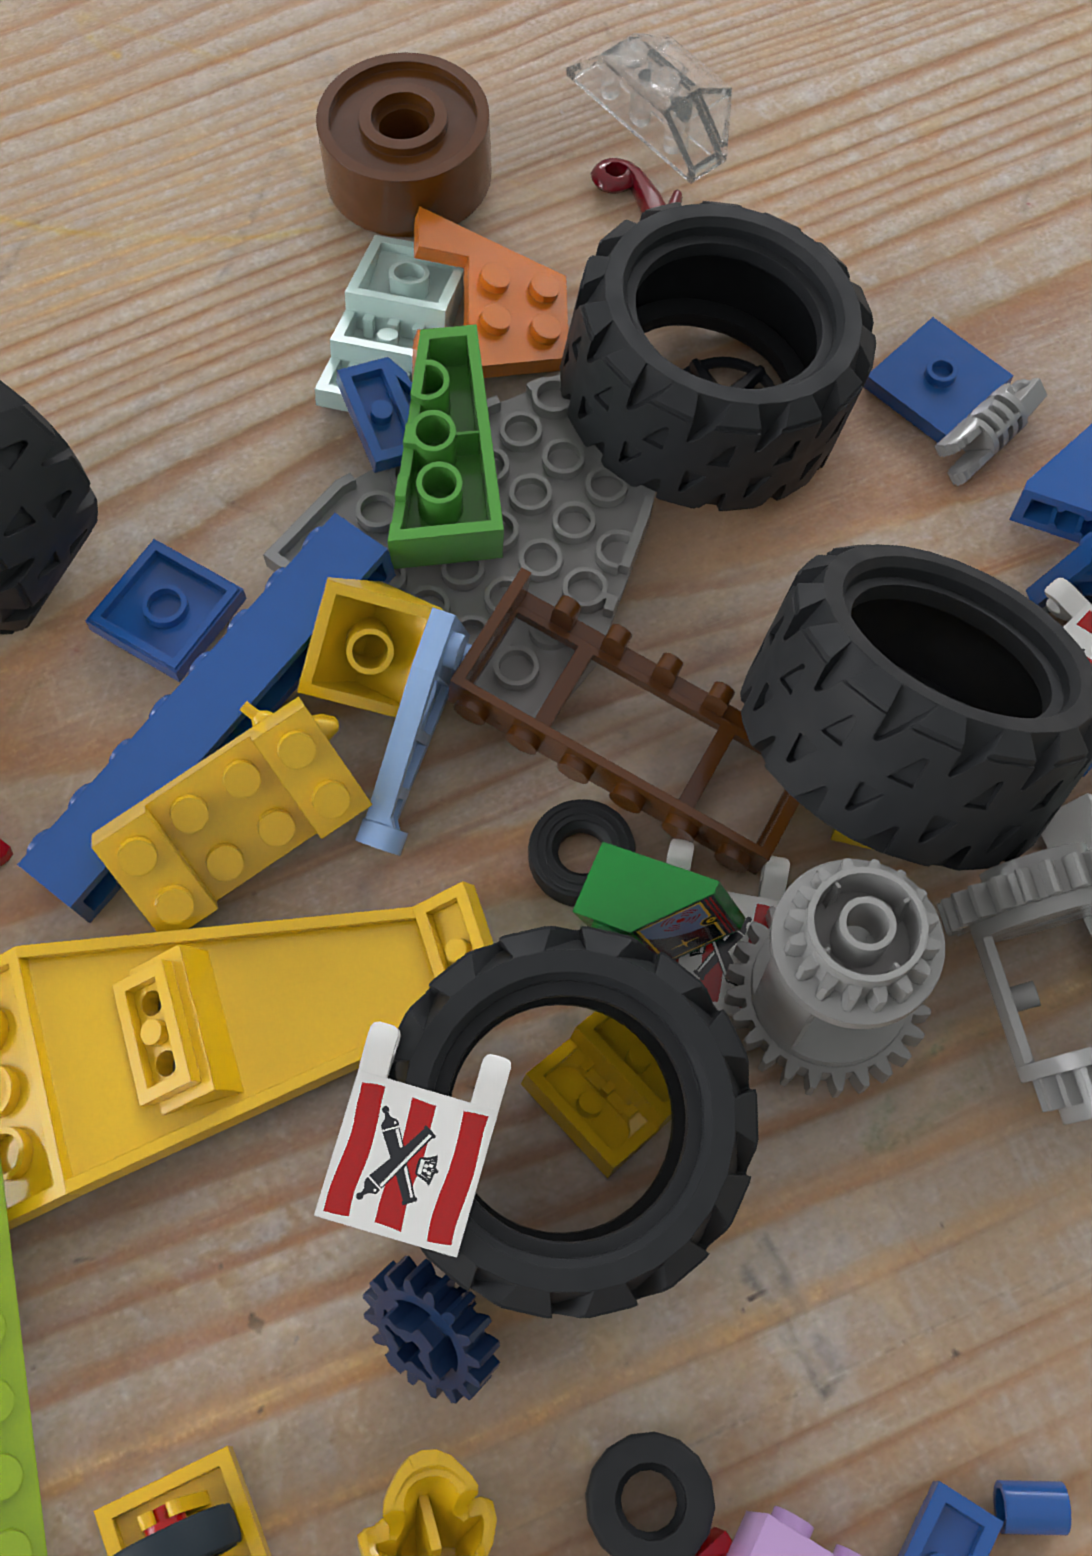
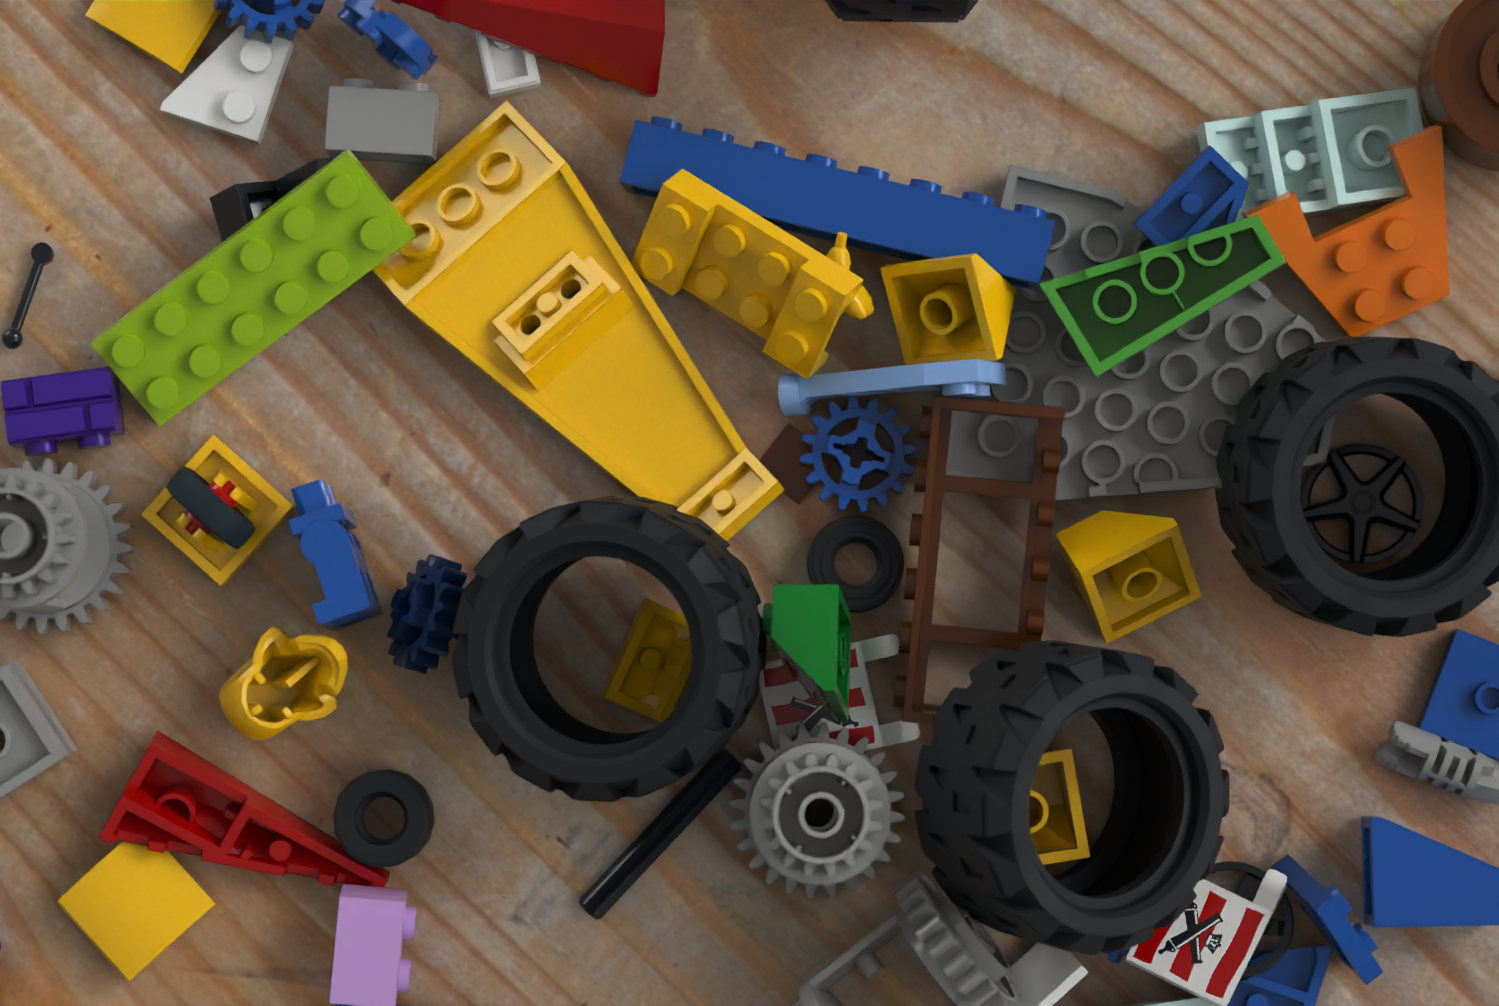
camera: 65 degrees right, 20 degrees up
(166, 609) = (924, 105): blue plate -> none
(307, 1414) = (337, 557): none -> blue hips
(408, 1153) = (517, 552): flag -> none
(450, 865) = (784, 464): none -> reddish brown sticker
(472, 826) = (890, 464): none -> blue gear
(696, 606) = (1128, 569): none -> yellow slope
(802, 1199) = (660, 834): none -> black axle

